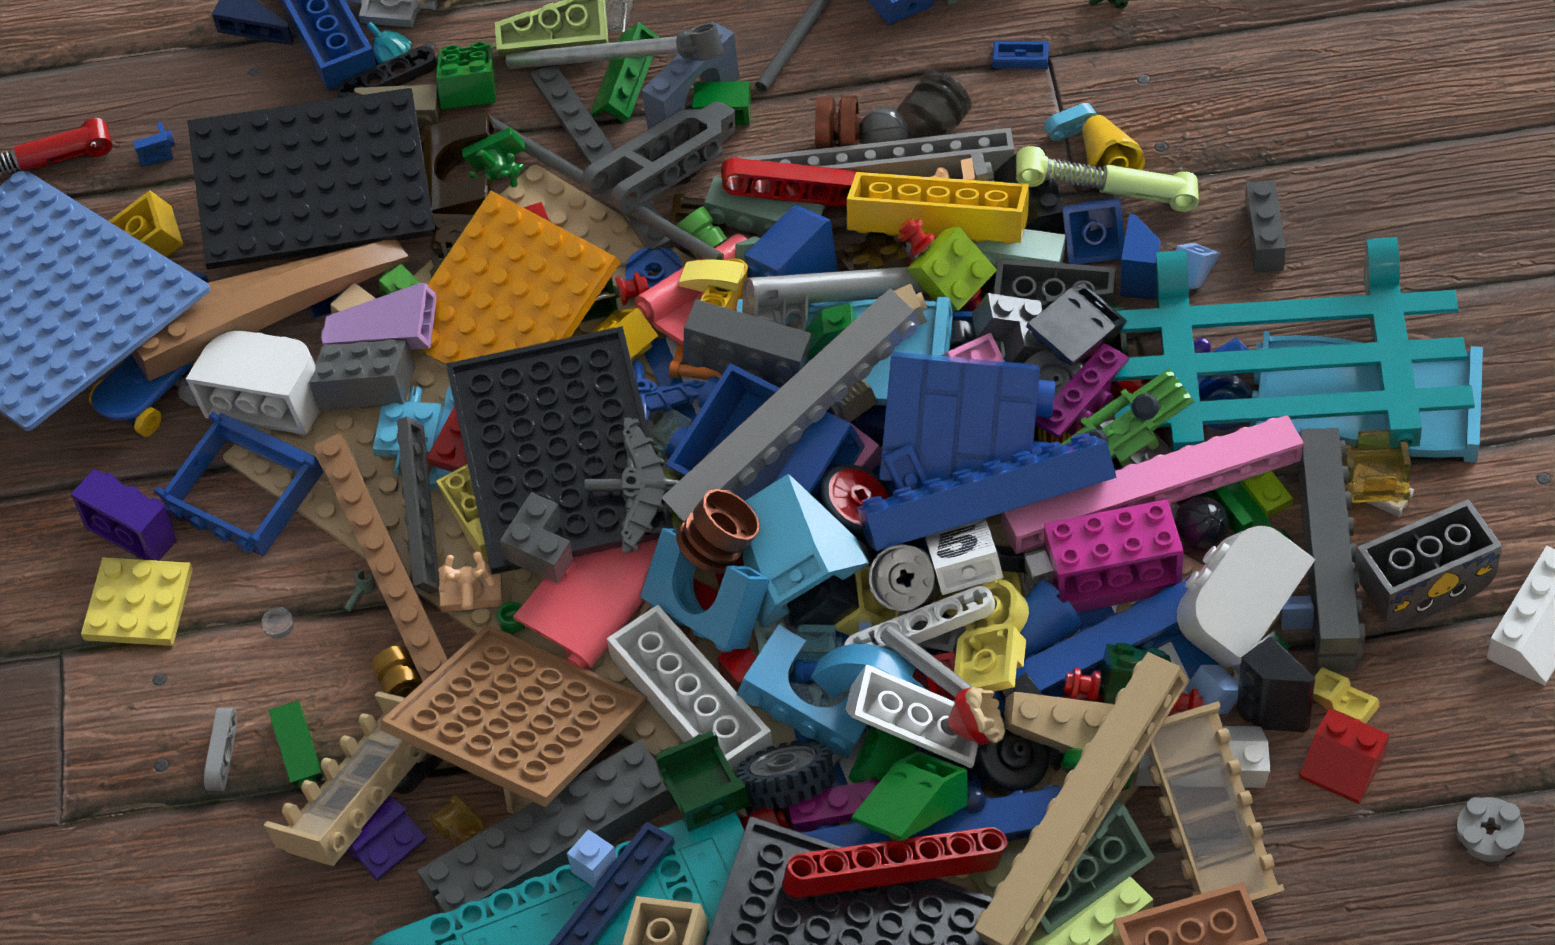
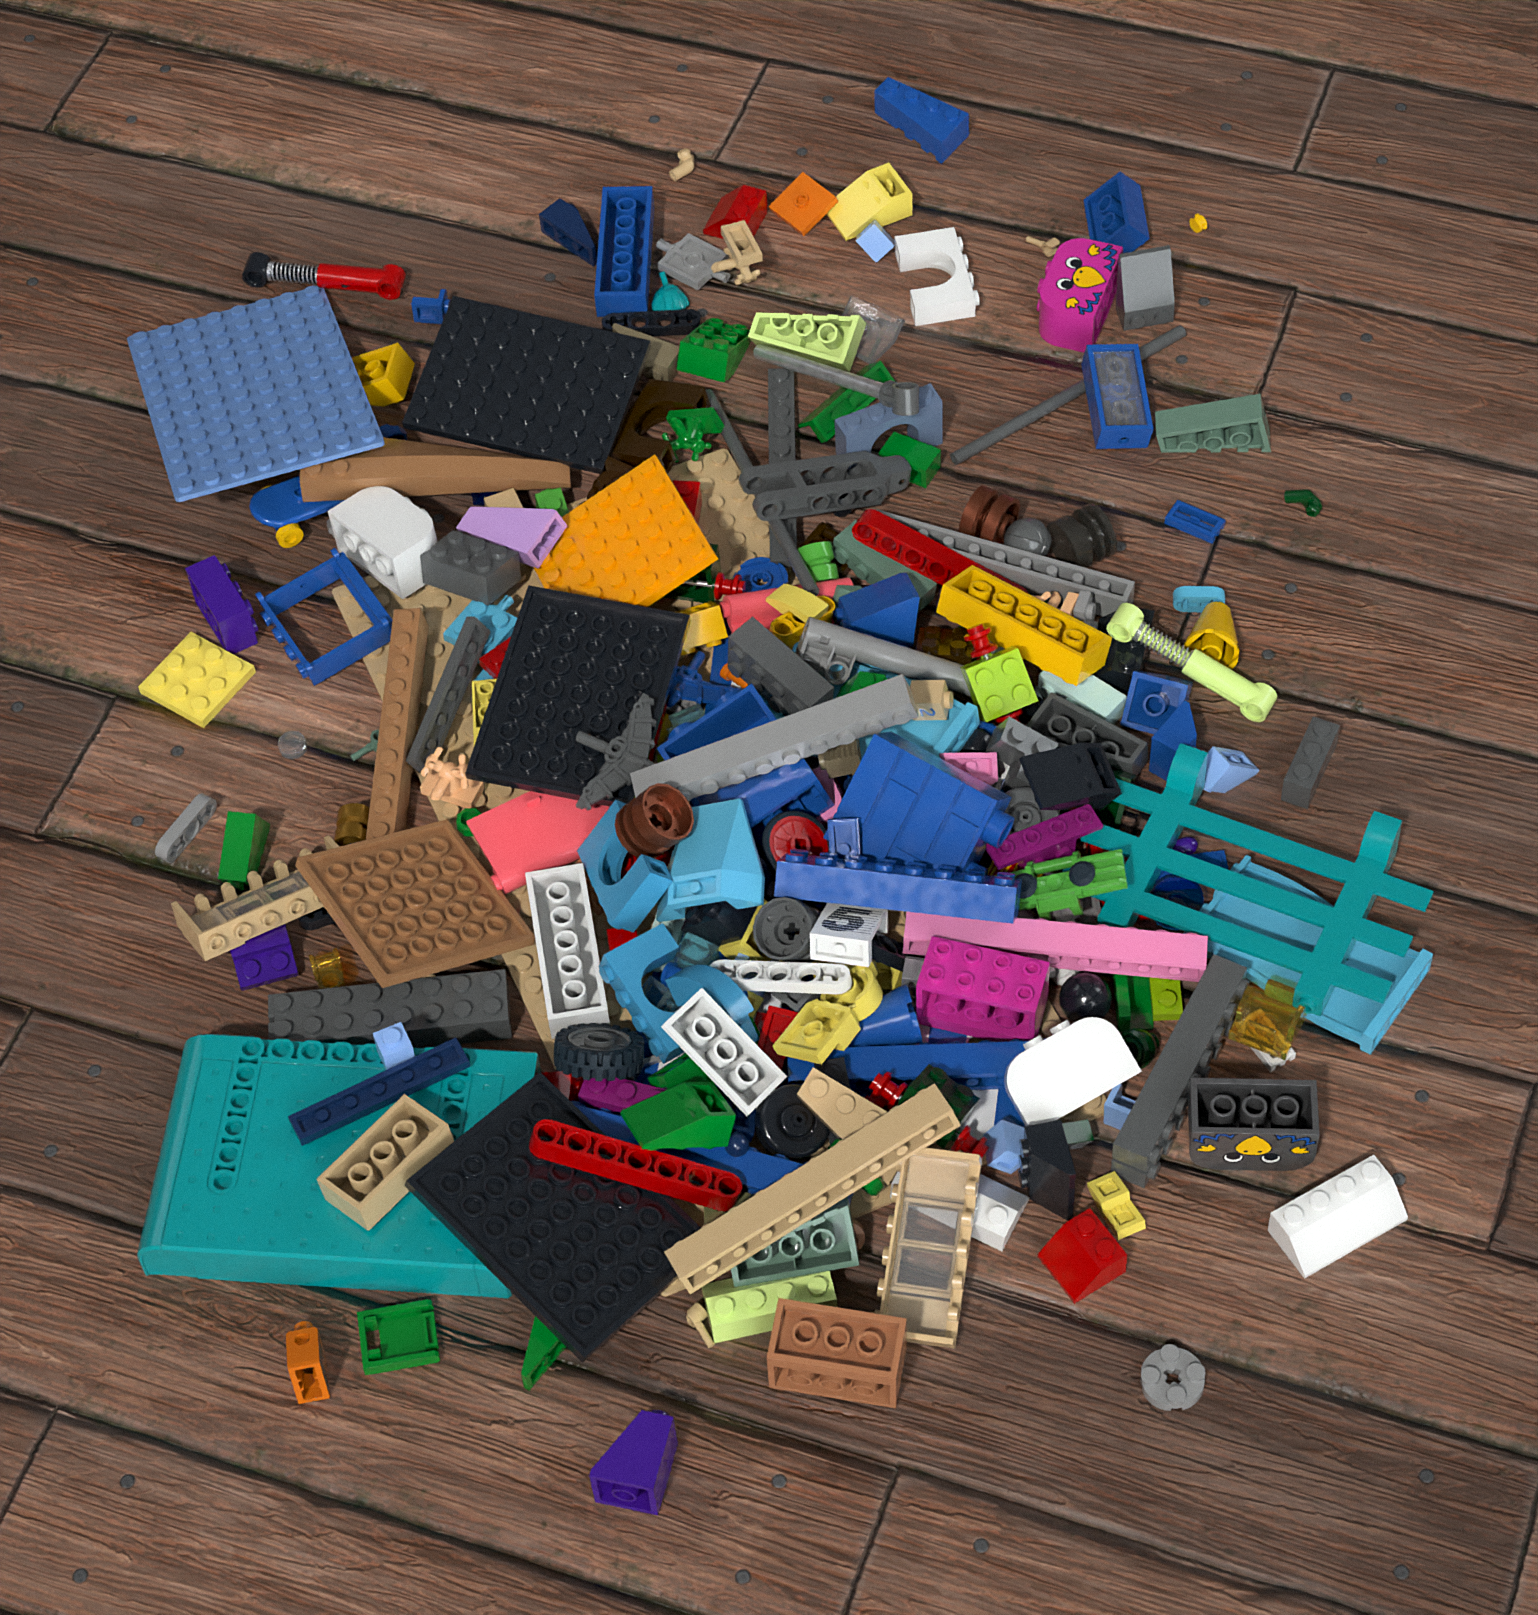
camera: 25 degrees right, 0 degrees up
(533, 542) = (507, 762): dark grey brick -> none
(701, 780) = (522, 1024): dark green panel -> none
(923, 661) = (765, 1019): light grey axle -> none
(976, 716) = (771, 1074): hair -> none

